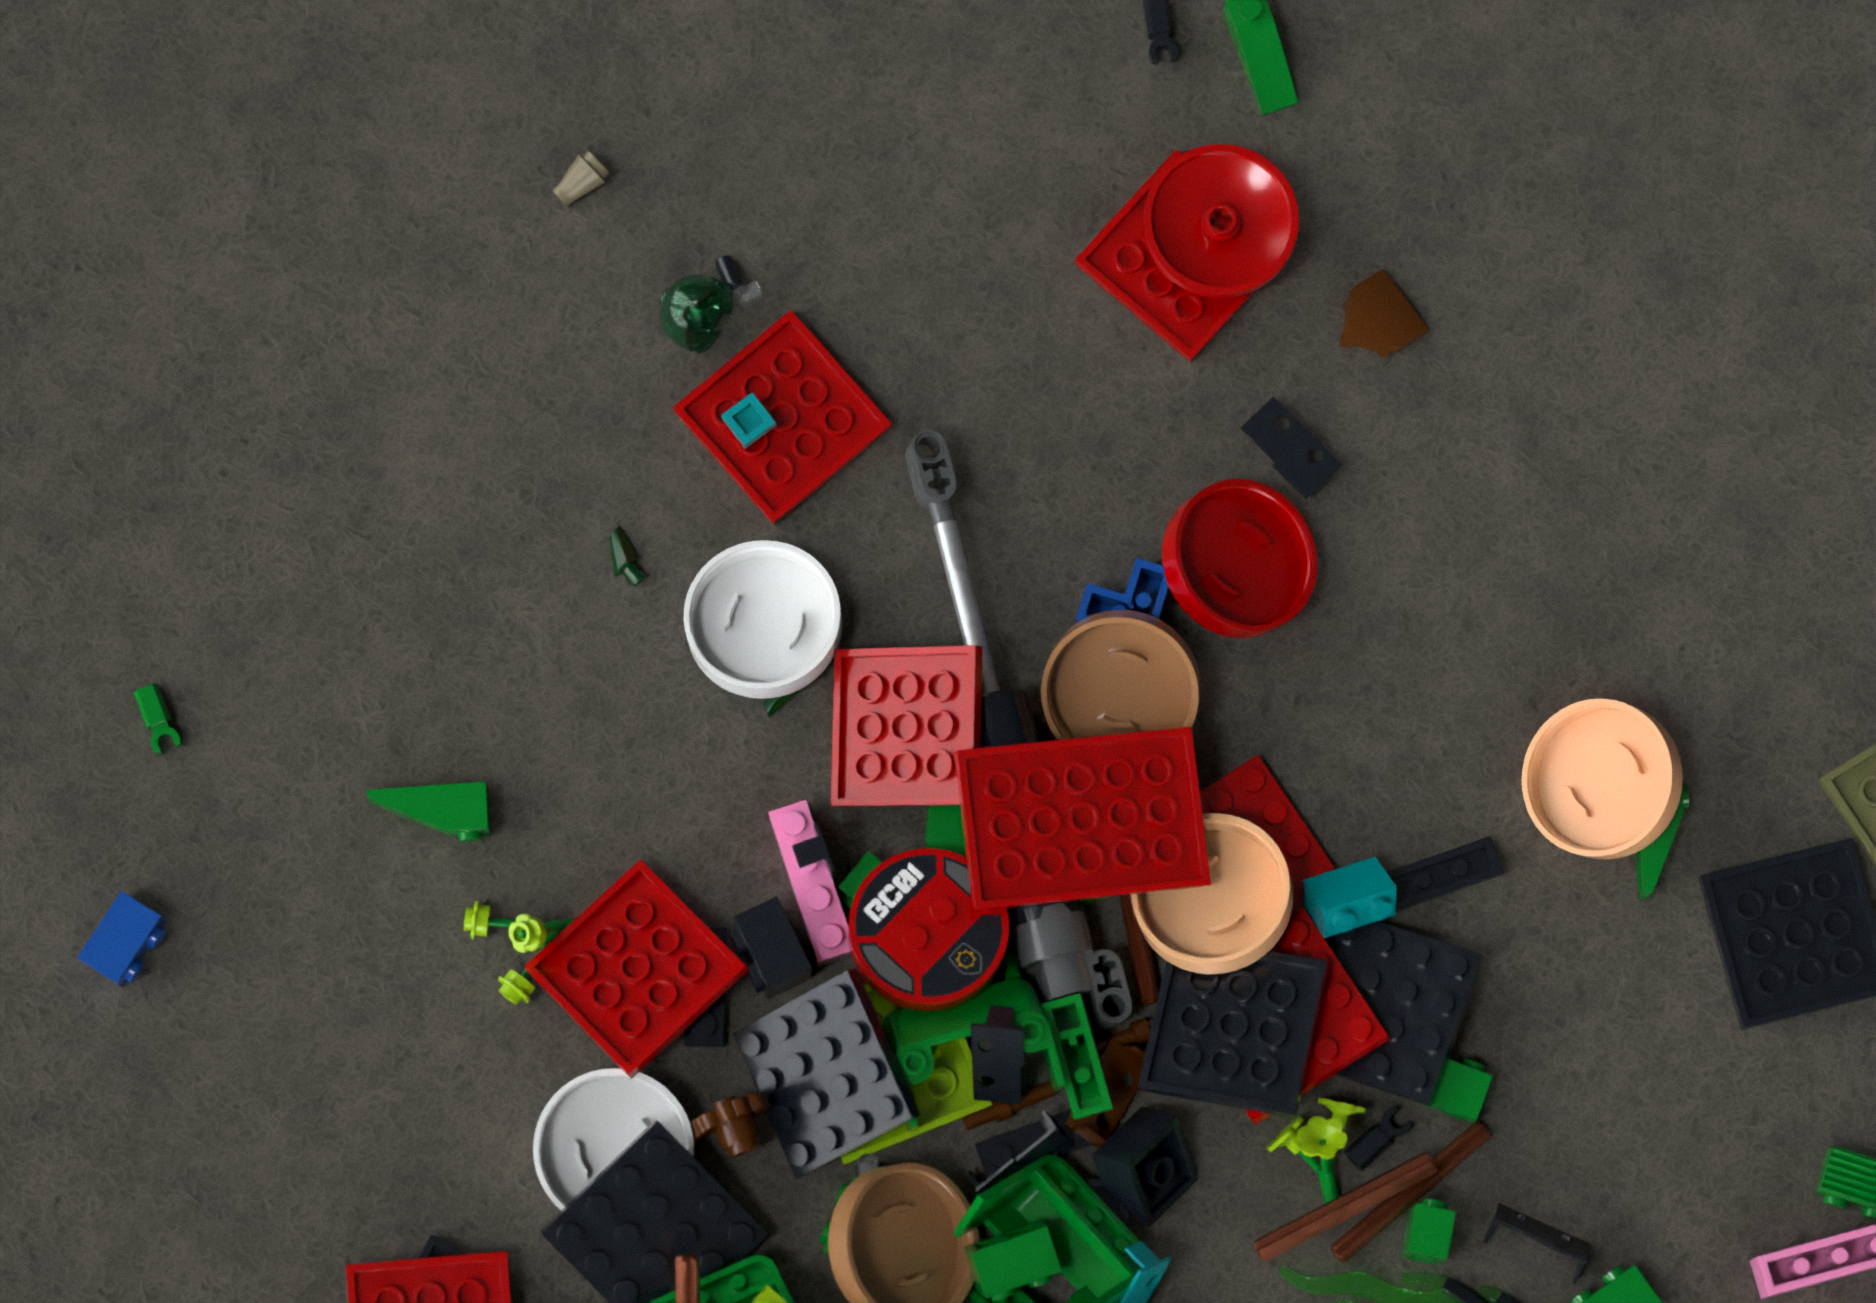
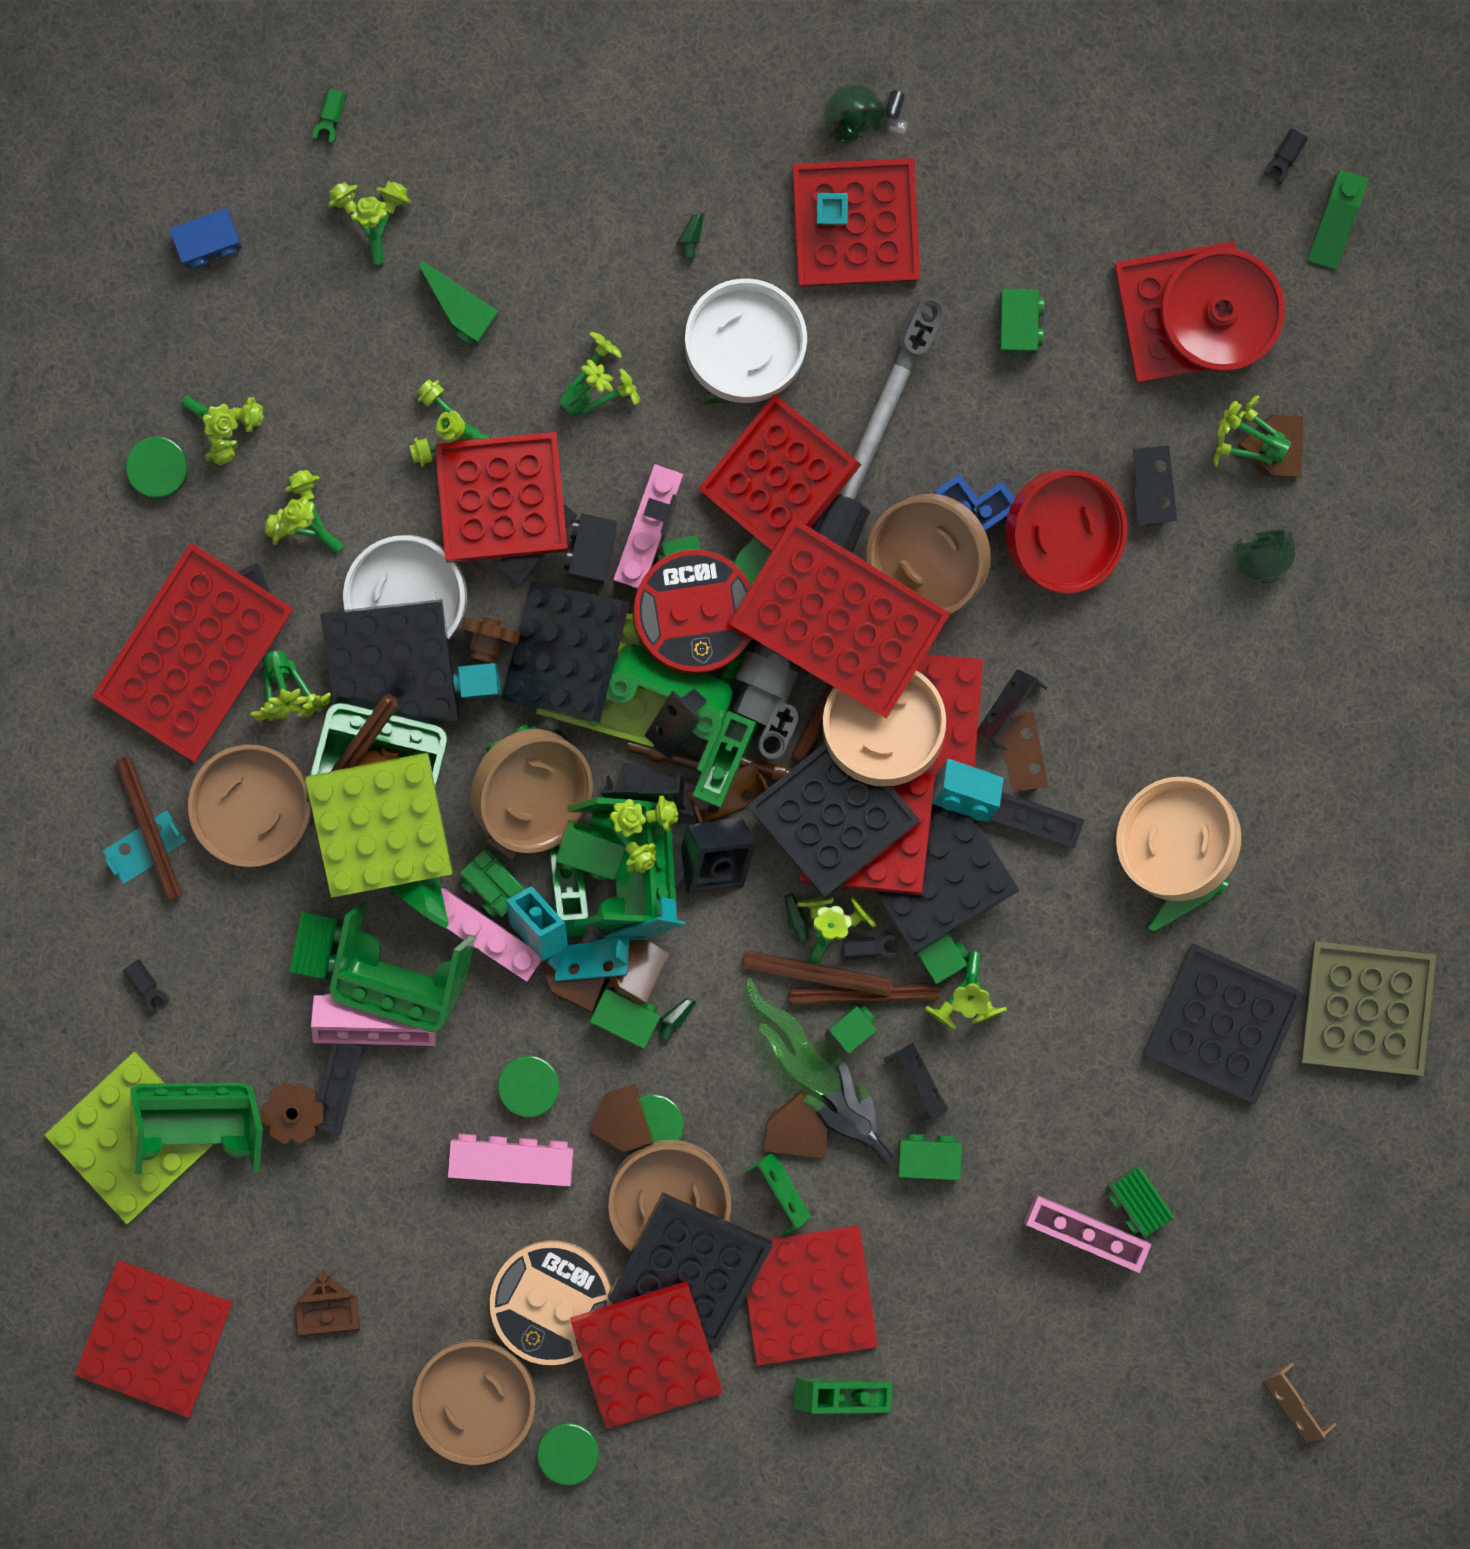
camera: 35 degrees right, 10 degrees up
(249, 1216) = (156, 467): none -> green tile
(273, 782) = (370, 211): none -> lime plant
(284, 1114) = (221, 421): none -> lime plant
(438, 1147) = (299, 514): none -> lime plant
(633, 806) = (578, 397): none -> plant
(759, 1176) = (478, 681): none -> teal brick
(1025, 388) = (1020, 321): none -> green brick
(1030, 1191) = (628, 820): none -> lime plant
(1278, 1167) = (796, 918): none -> dark green bar
(1320, 782) = (1006, 706): none -> black piece
(1370, 819) = (1022, 753): none -> reddish brown piece
(1377, 314) = (1273, 444): none -> plant
(1458, 431) = (1265, 556): none -> clear green cylinder
(1522, 1109) = (967, 998): none -> lime plant

